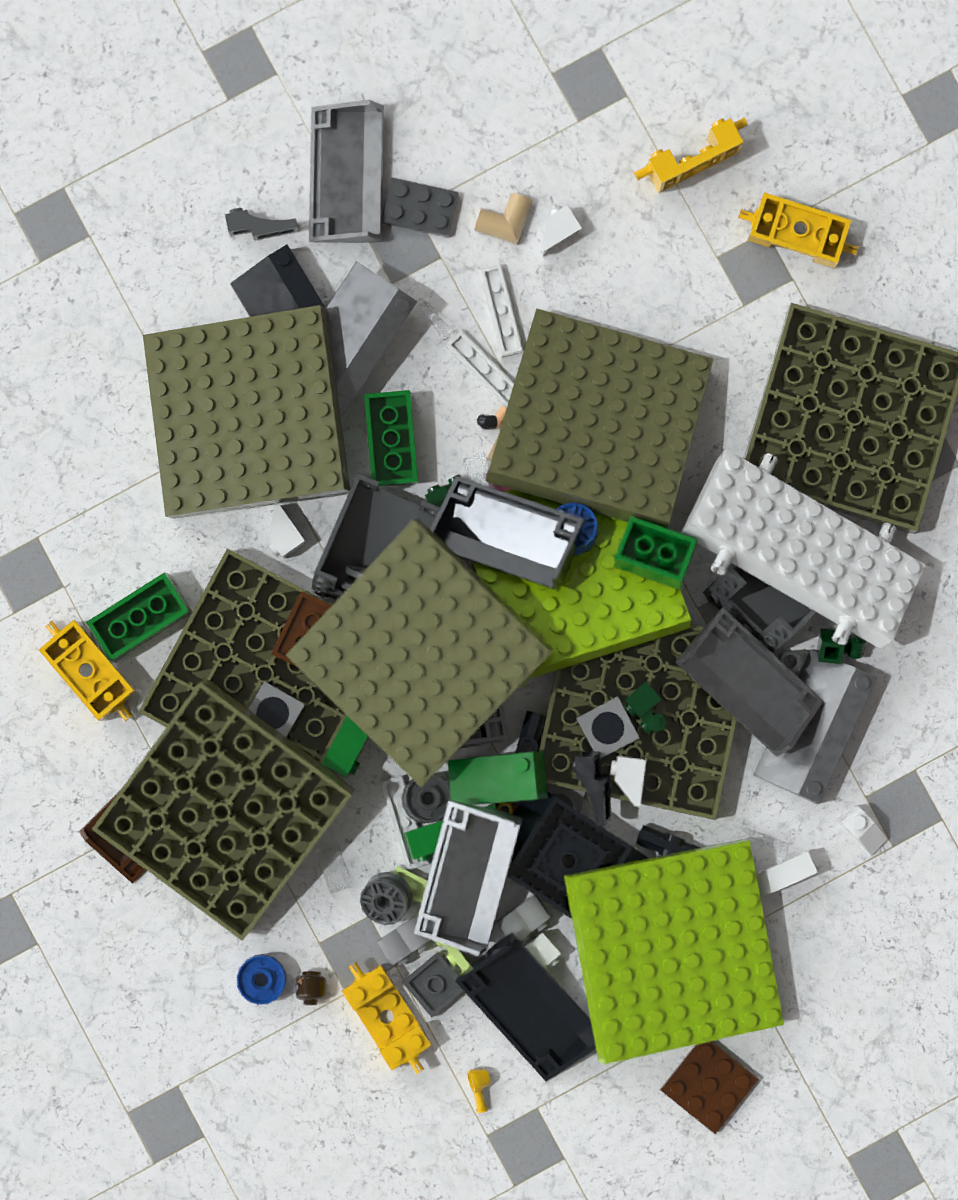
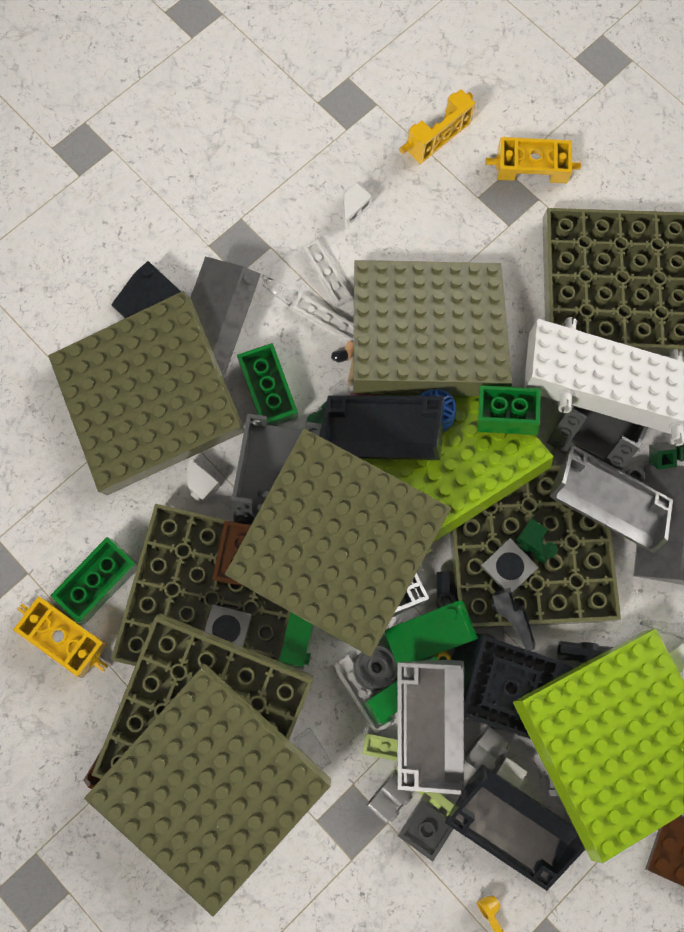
camera: 15 degrees left, 10 degrees down
(213, 876) = (209, 790): none -> olive brick
(241, 222) = (126, 257): dark grey slope -> none
(250, 989) = (284, 879): blue wheel -> none
(310, 987) = (320, 864): dark brown head -> none
(346, 172) = (182, 203): flat silver slope -> none
(377, 907) = (364, 776): dark grey wheel -> none
(403, 1037) = (410, 889): yellow brick -> none
(420, 207) = (244, 215): dark grey plate -> none
(506, 226) = (315, 211): tan brick -> none
(629, 777) = (541, 602): white slope -> none

